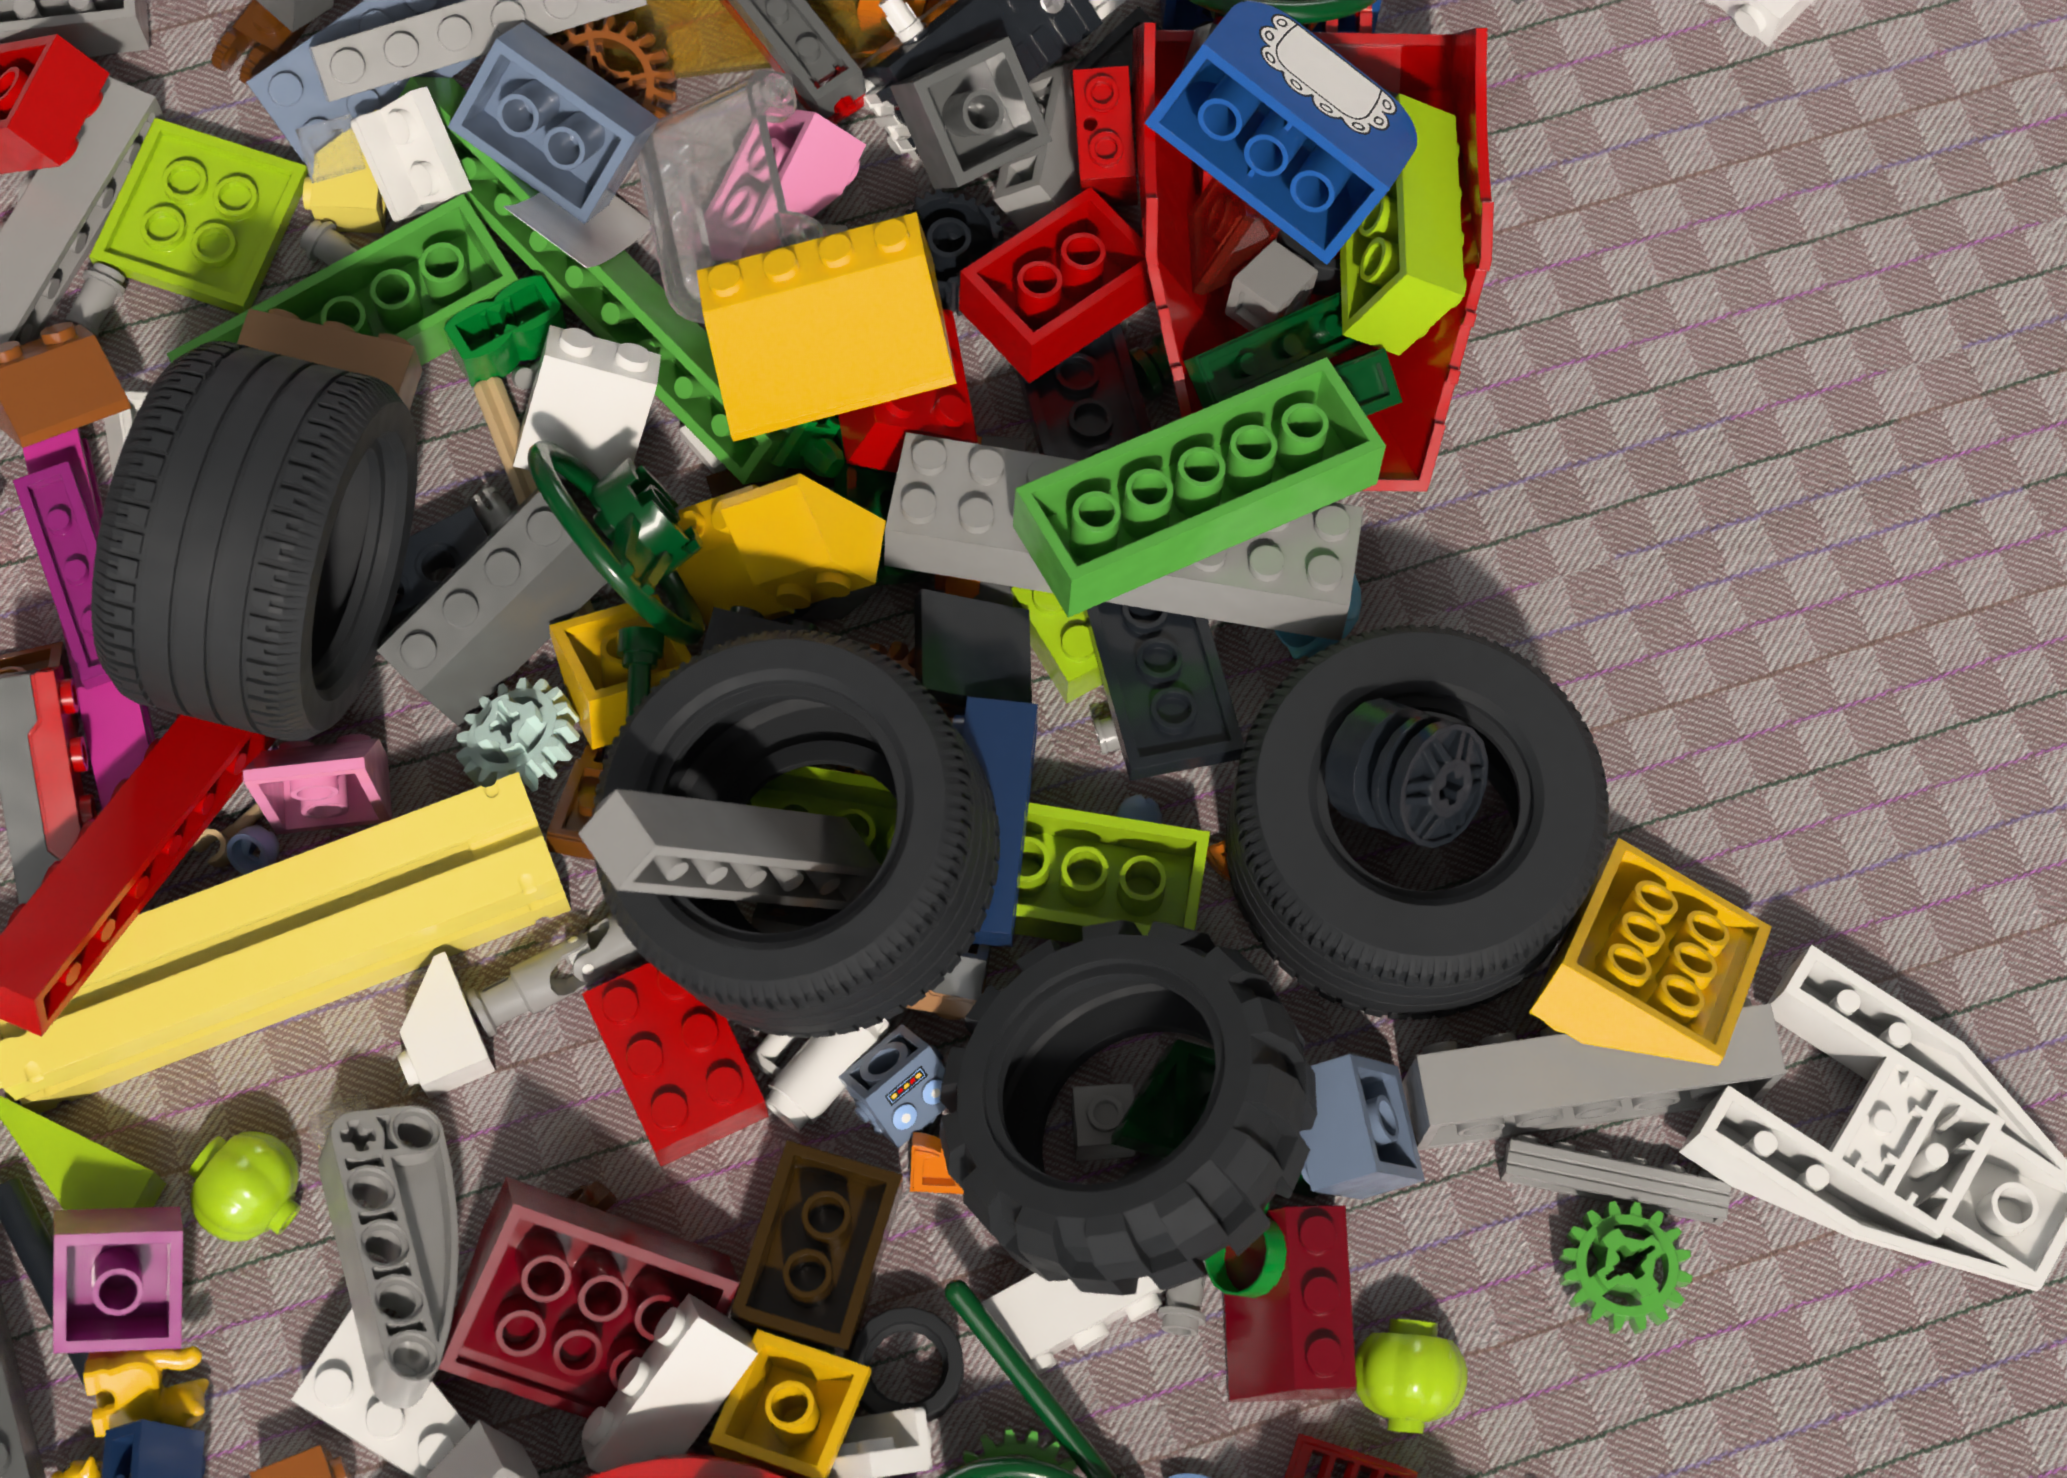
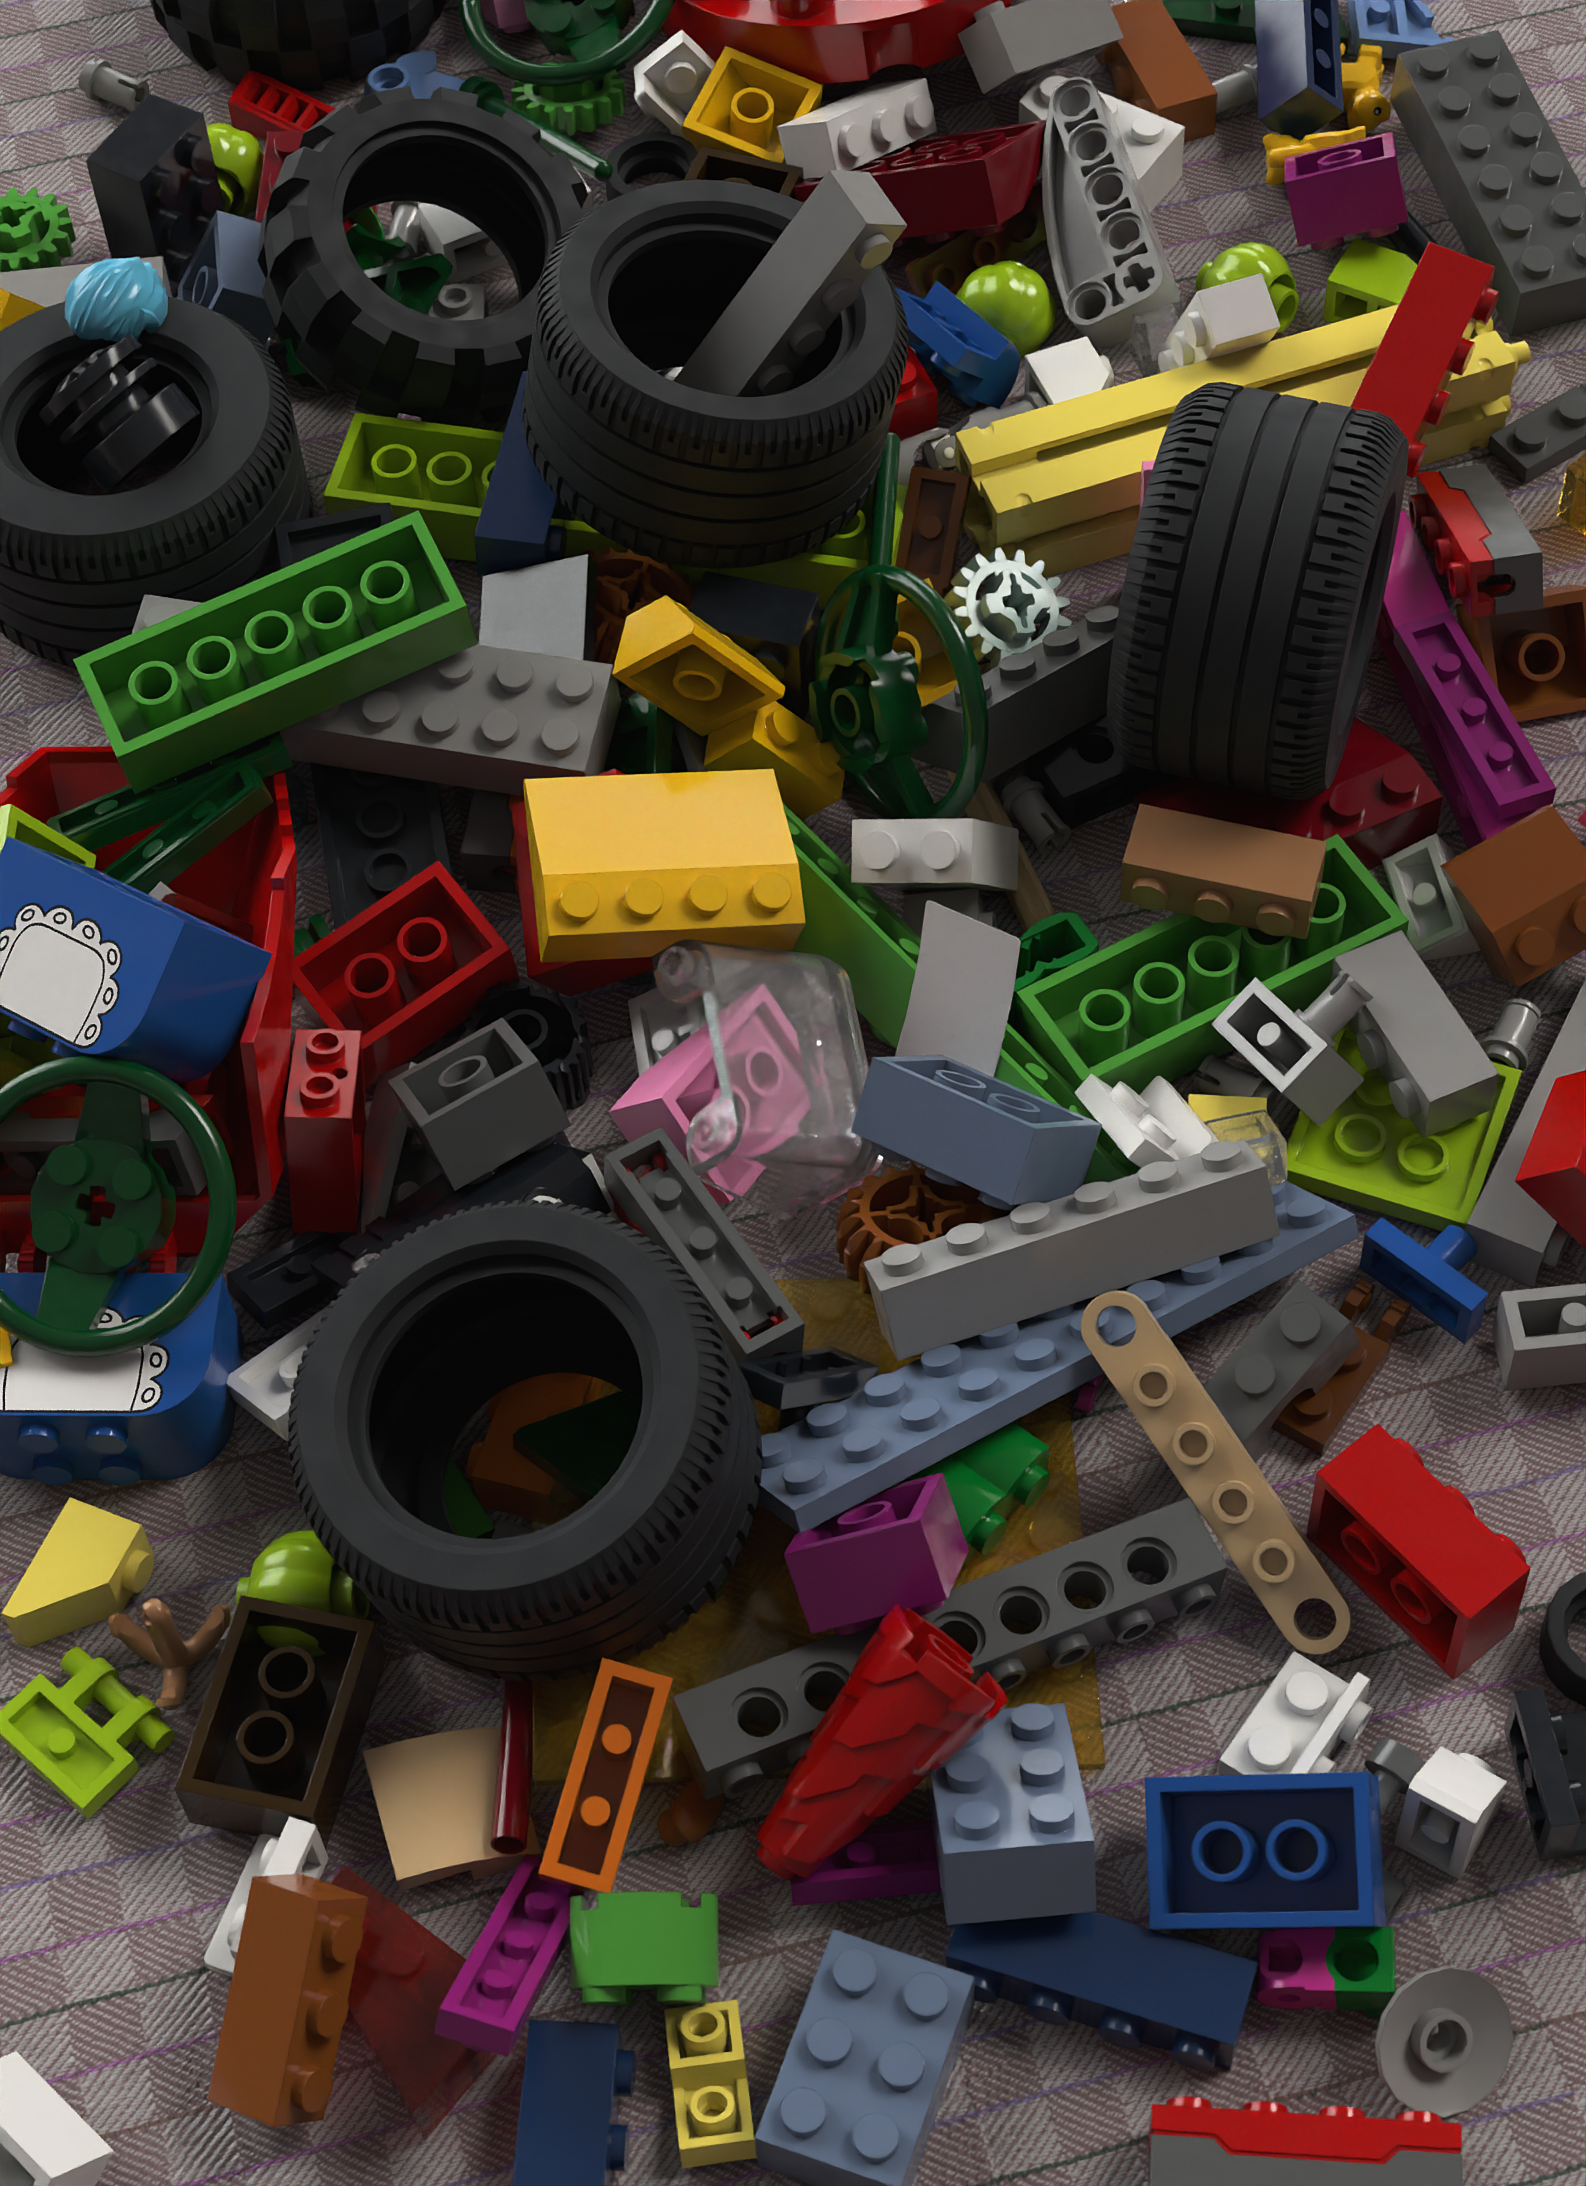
camera: 170 degrees left, 15 degrees down
(178, 254) = (1416, 1037): none -> light grey brick
(193, 80) = (1428, 1275): none -> blue tile
(278, 227) = (1297, 1047): none -> light grey brick
(279, 1040) = (1221, 323): none -> white brick
(511, 1145) = (1012, 302): none -> lime plant
(566, 1068) = (960, 346): none -> blue brick
(1436, 911) = (116, 300): none -> medium azure hair
(1455, 1249) = (156, 185): none -> black brick

